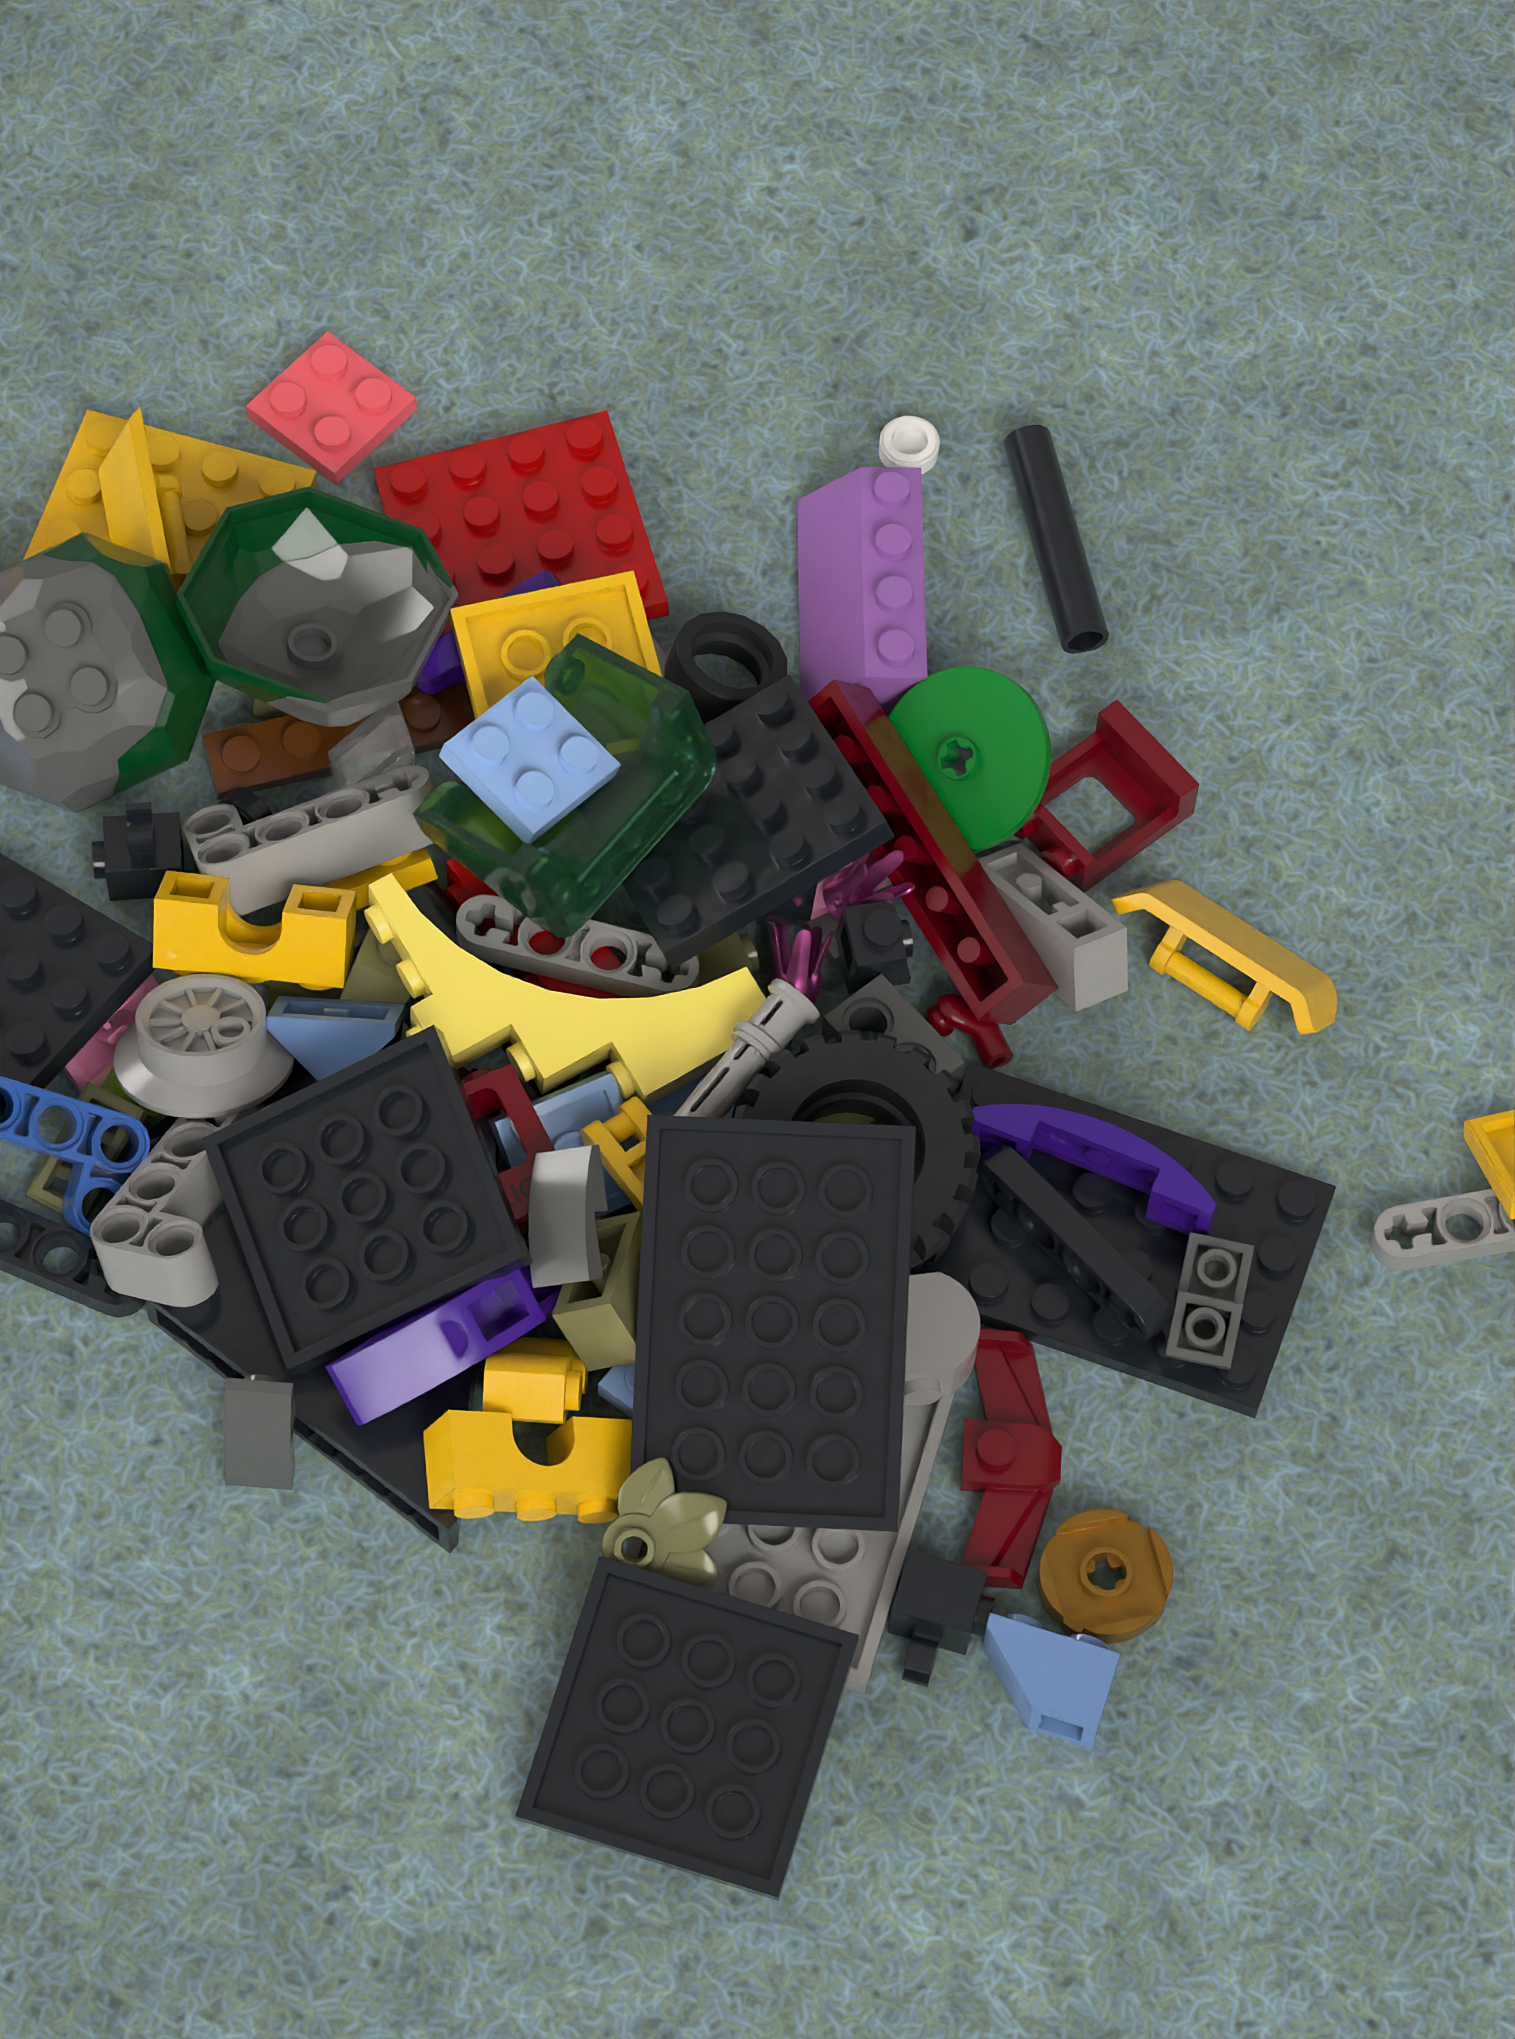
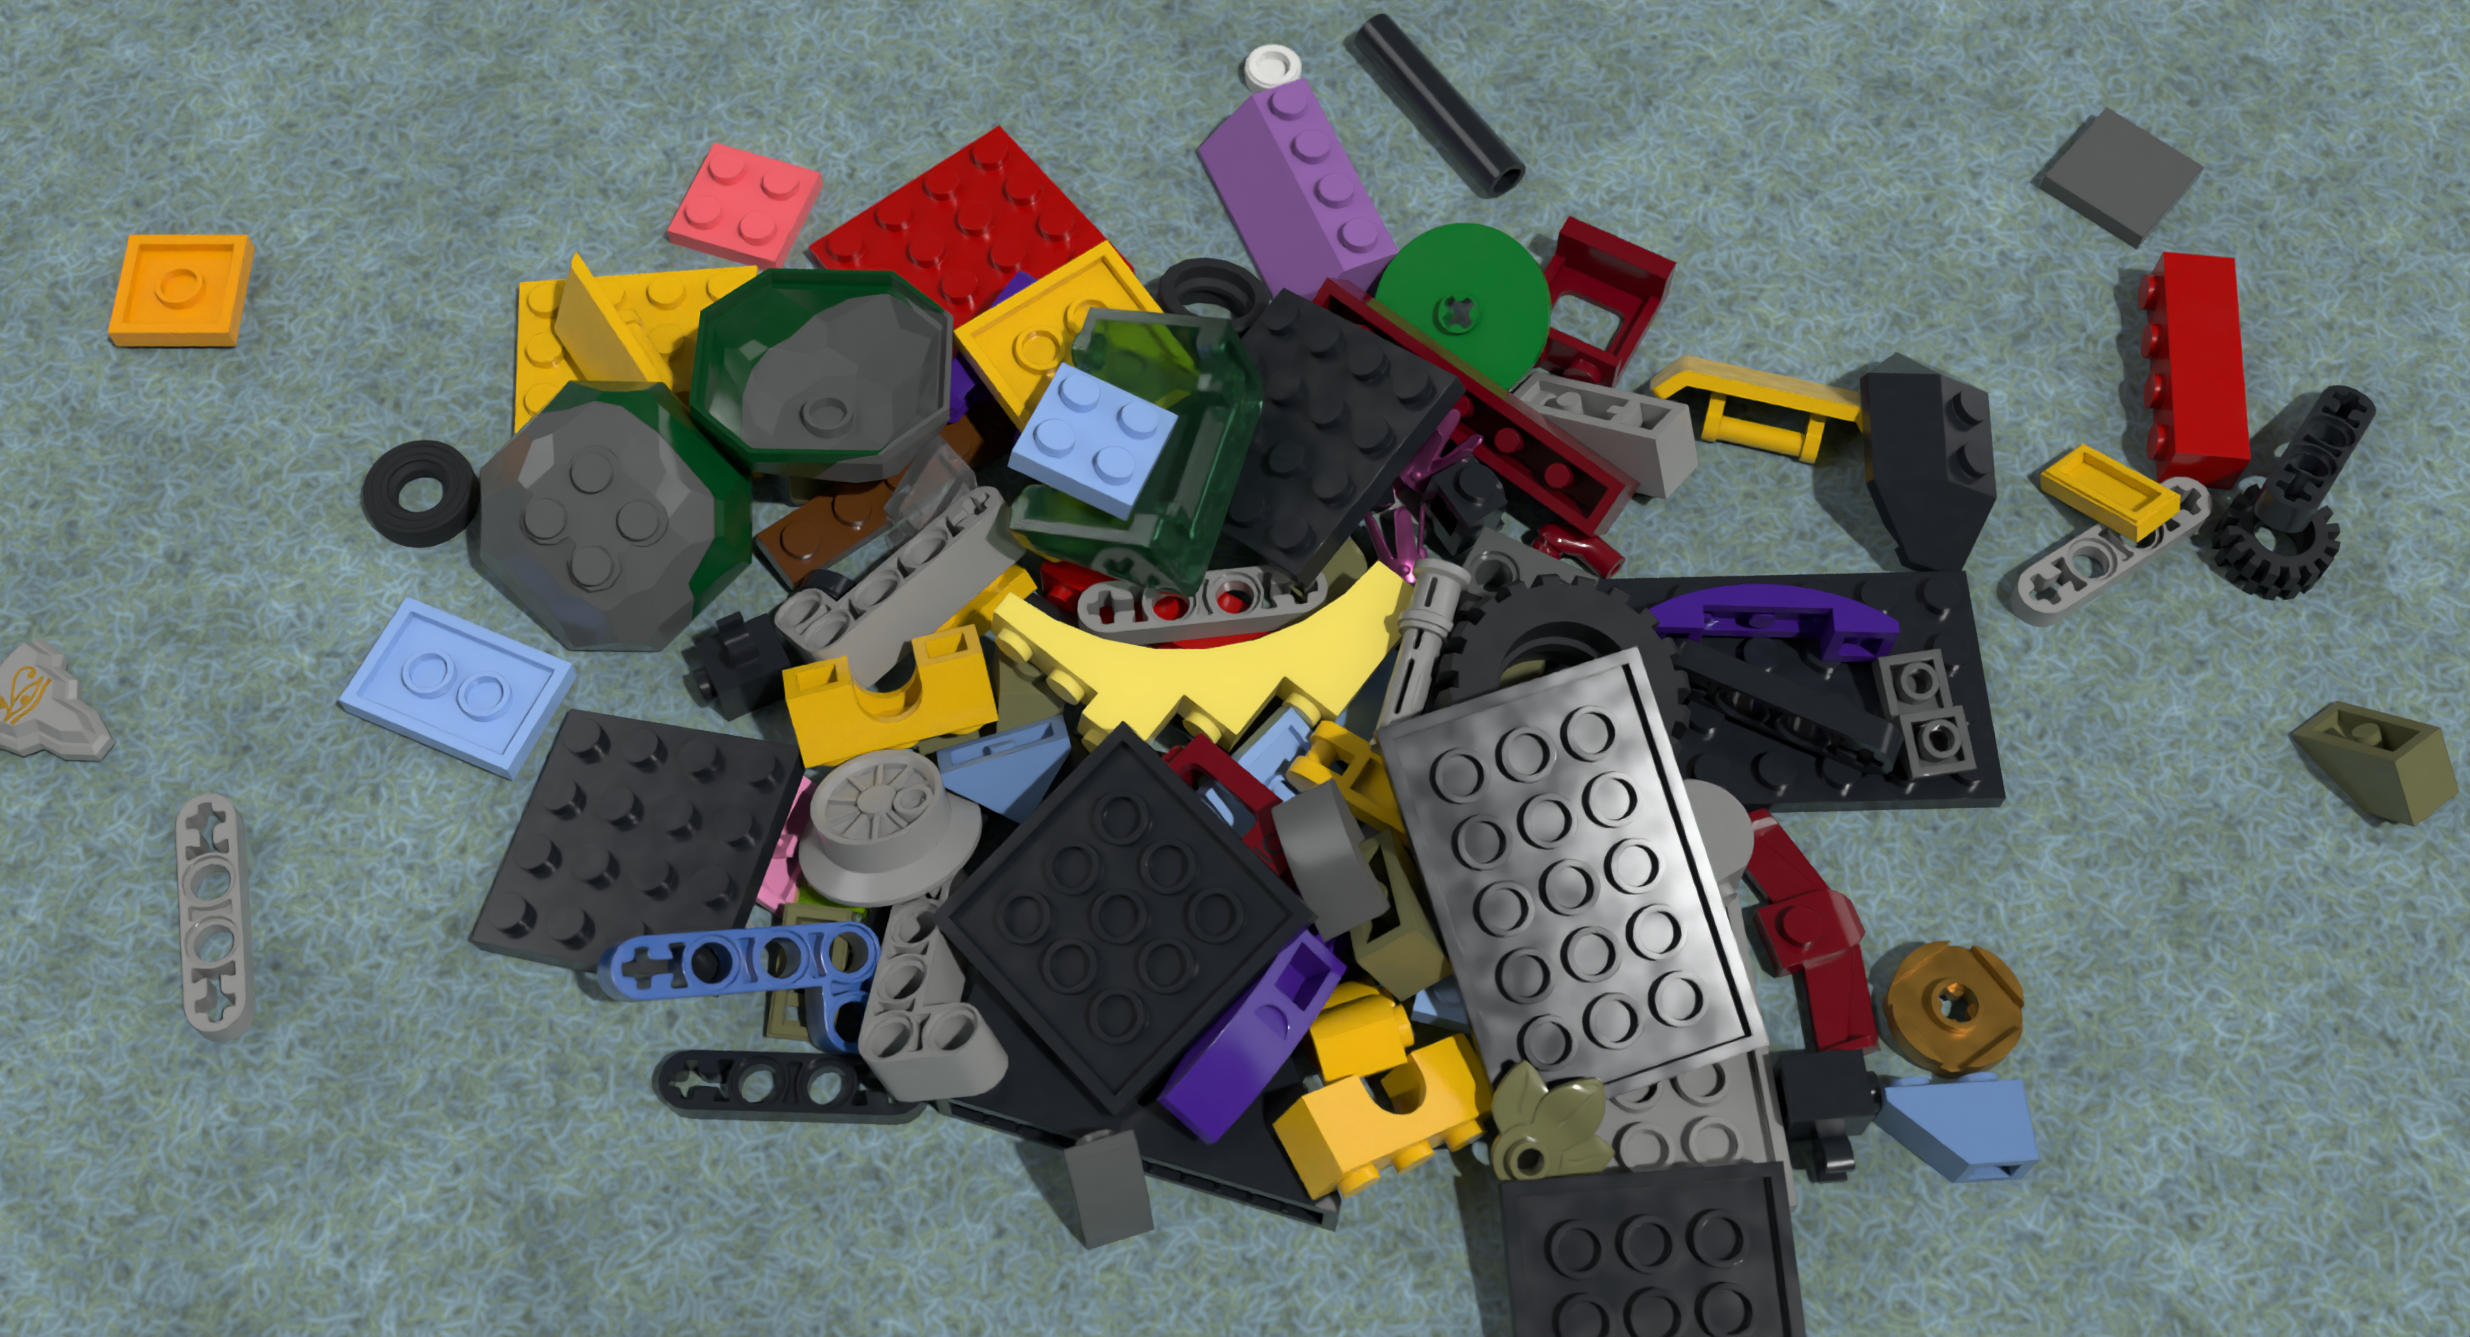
camera: 20 degrees left, 0 degrees up
(1345, 1061) = (1927, 460): none -> black wedge

